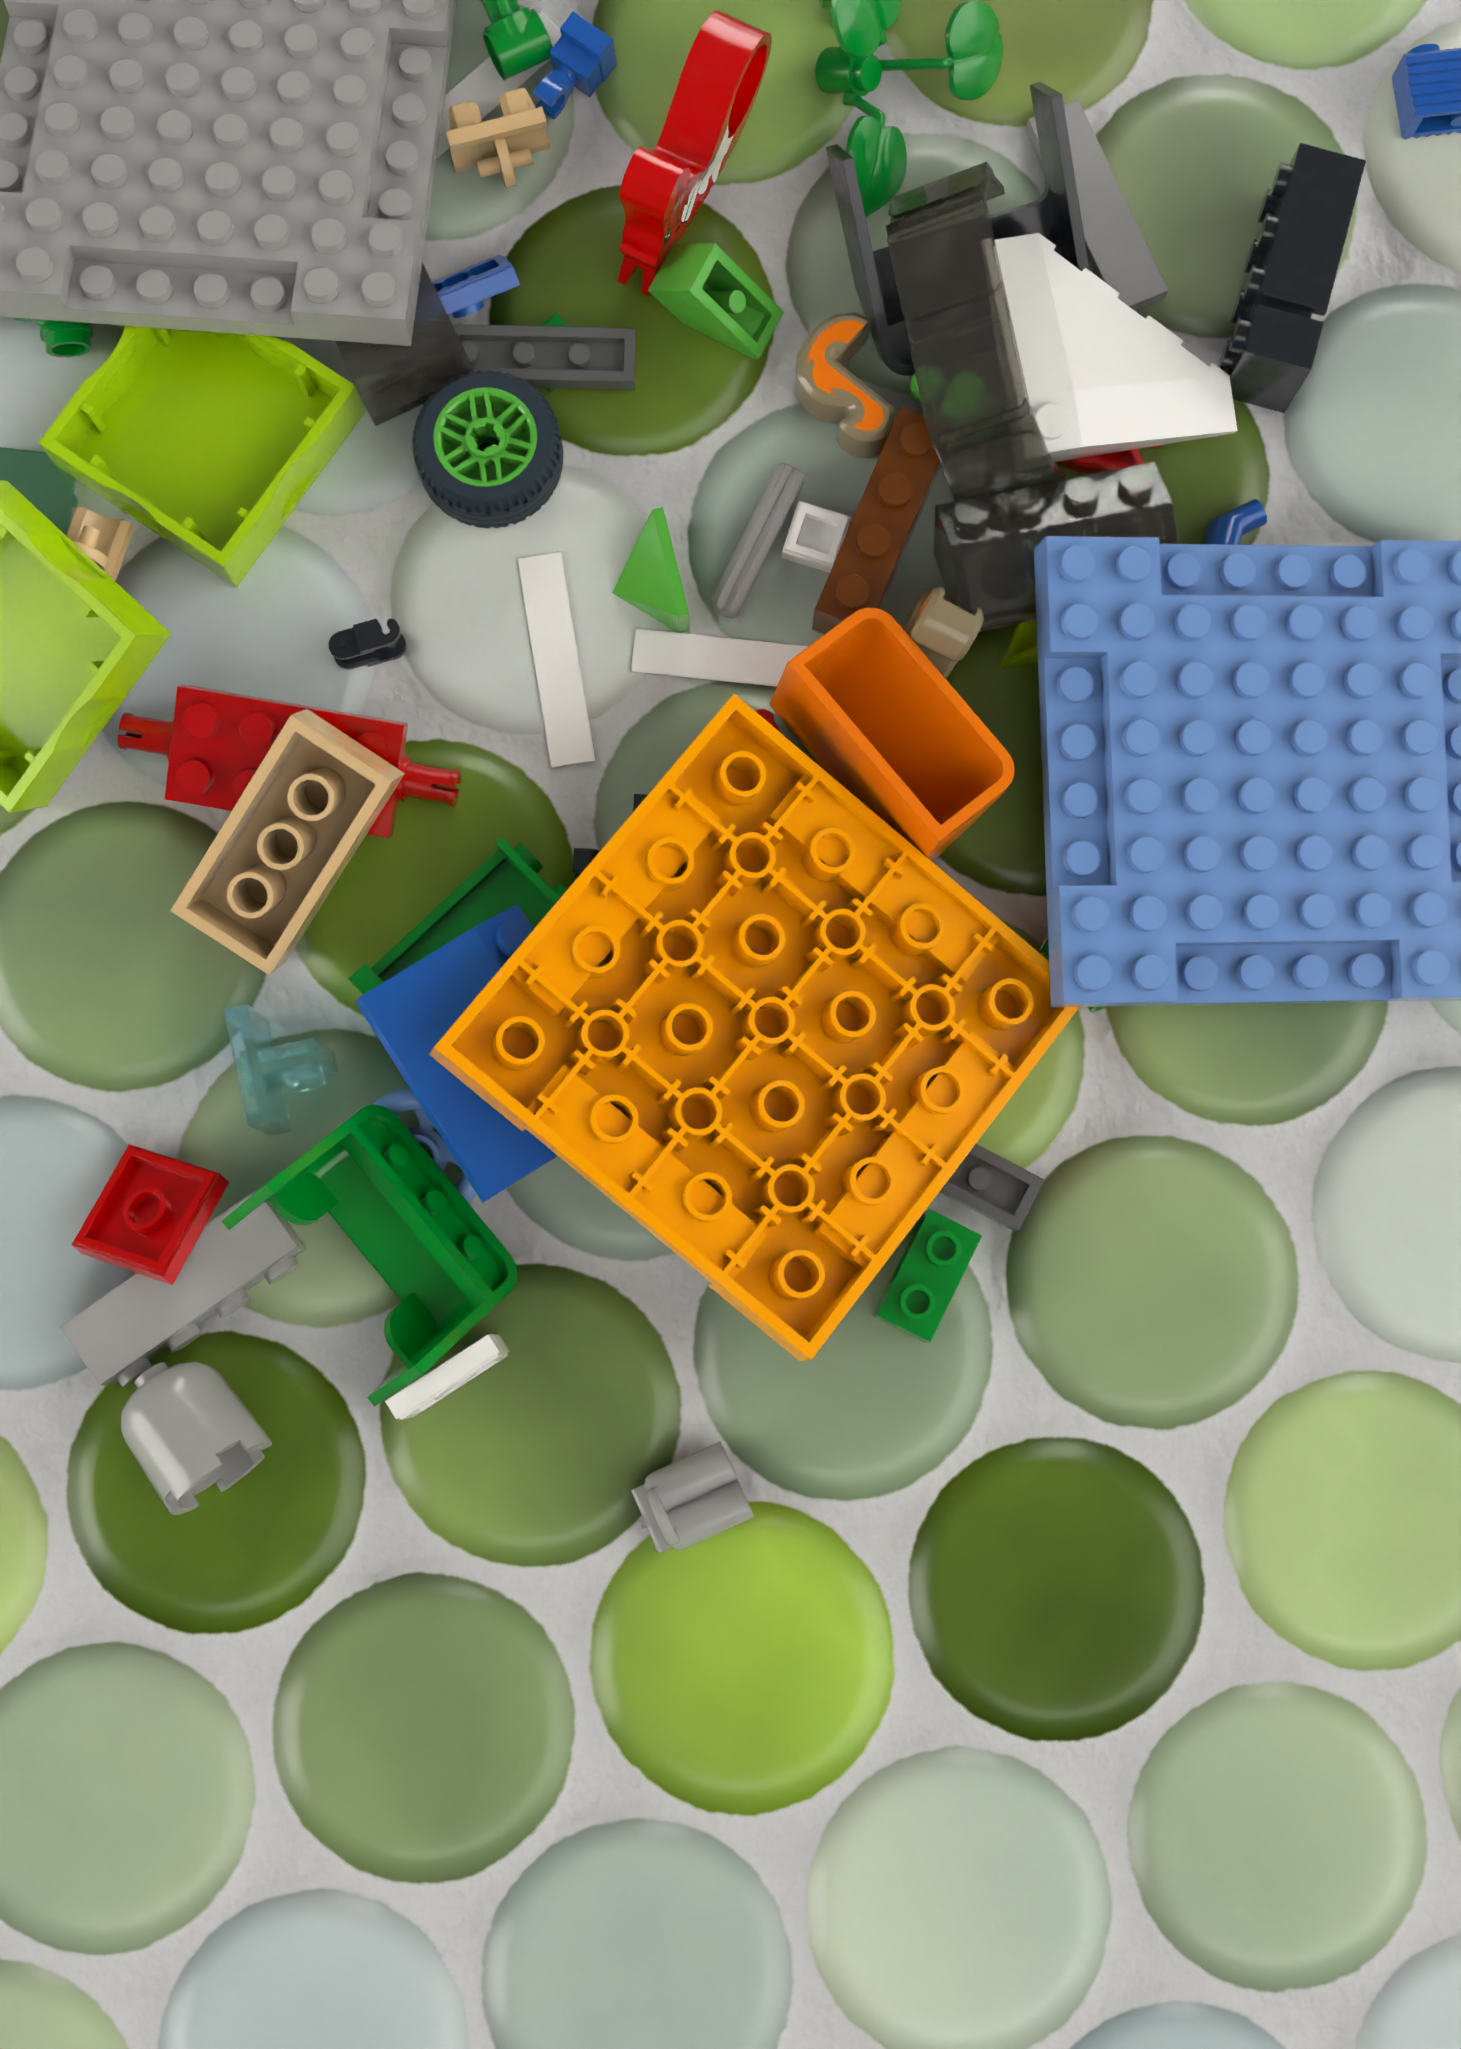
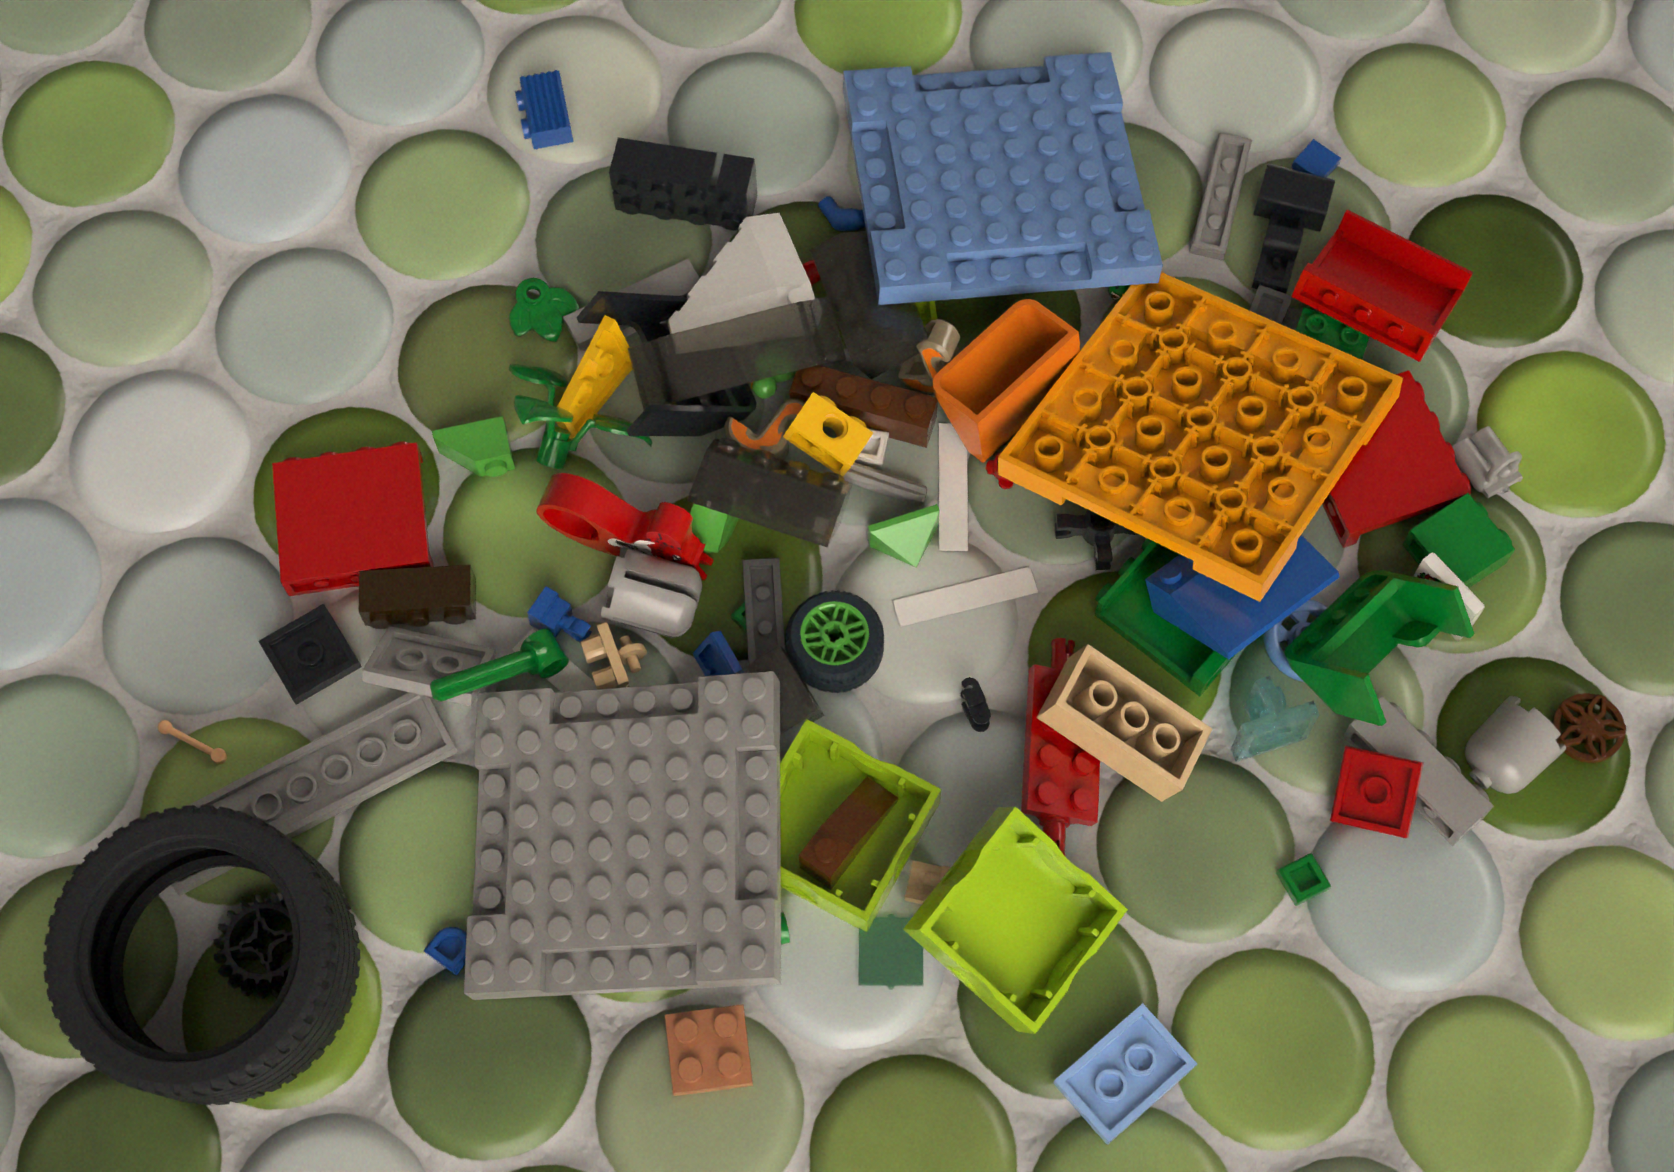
camera: 90 degrees left, 15 degrees down
(48, 1092) = (1303, 879): none -> green tile
(187, 436) = (846, 832): none -> reddish brown slope
(229, 1572) = (1589, 727): none -> reddish brown wheel
(542, 1422) = (1462, 539): none -> green brick
(578, 187) = (652, 593): none -> light grey cylinder
(687, 1357) = (1398, 472): none -> red panel
(727, 364) = (770, 491): none -> clear smoke slope
(821, 421) = (808, 434): none -> yellow brick
(955, 126) = (597, 375): none -> yellow wing
(1013, 1375) = (1383, 285): none -> red panel
(1089, 73) = (541, 314): none -> green plate
(1201, 1264) = (1291, 203): none -> black plate
(1228, 1150) = (1220, 196): none -> light grey tile
(1280, 1320) = (1316, 160): none -> blue tile

